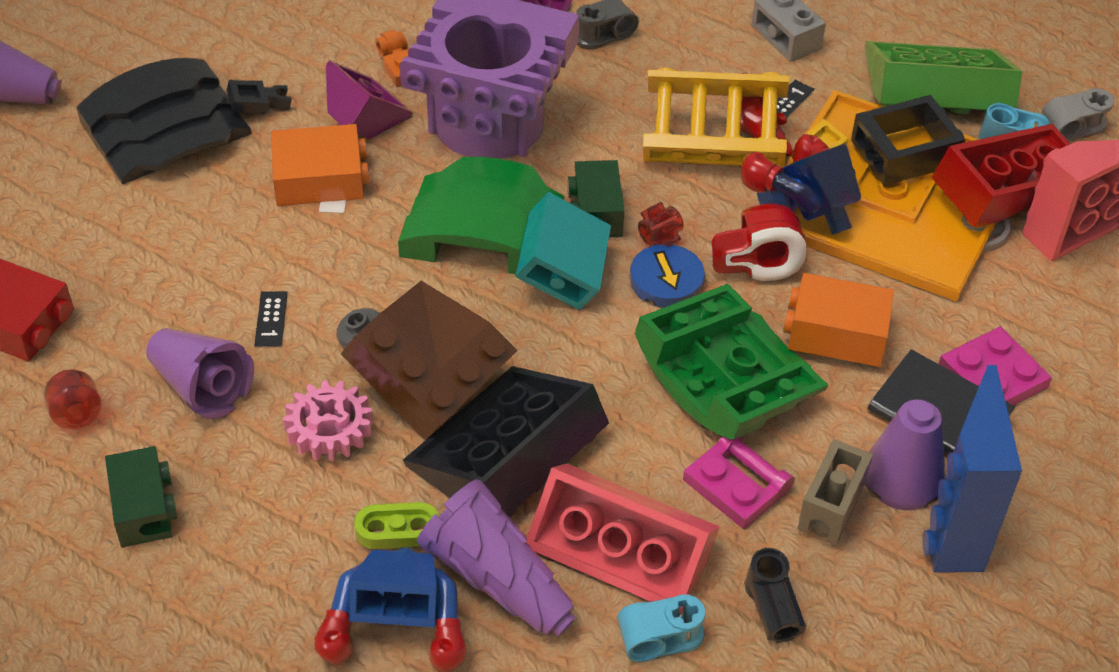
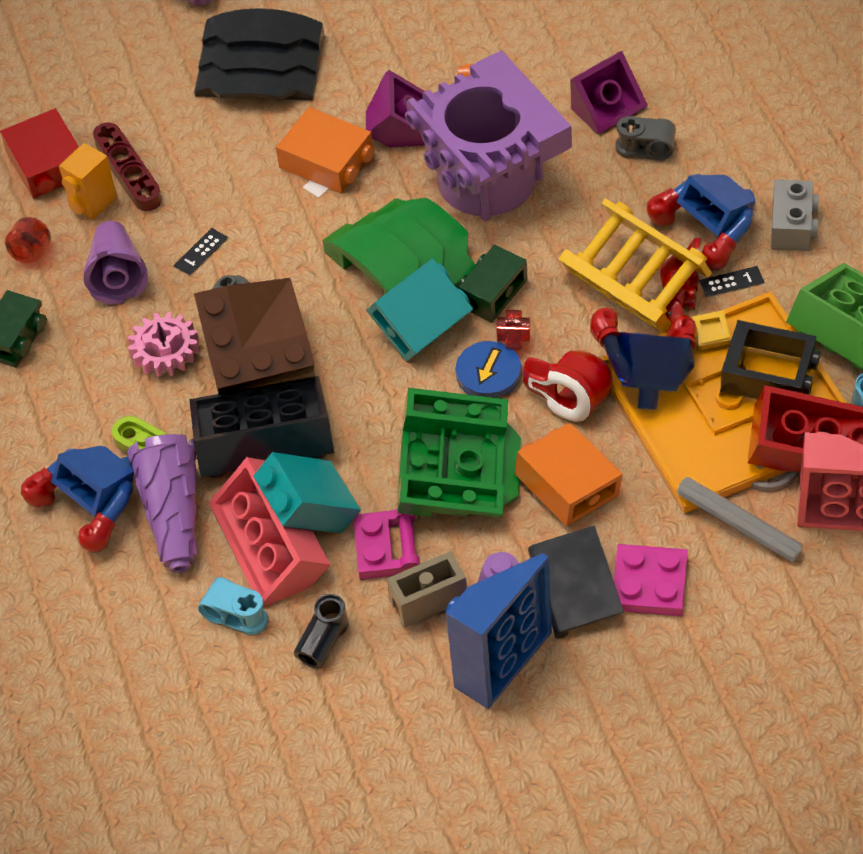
camera: 45 degrees right, 5 degrees up
(97, 304) = (88, 181): none -> light orange brick
(117, 273) = (124, 167): none -> dark red beam
(253, 97) = (332, 70): black plate -> none
(637, 469) = (306, 493): none -> teal brick
(725, 39) = (715, 203): none -> blue torso
(1014, 276) = (739, 519): none -> light grey axle

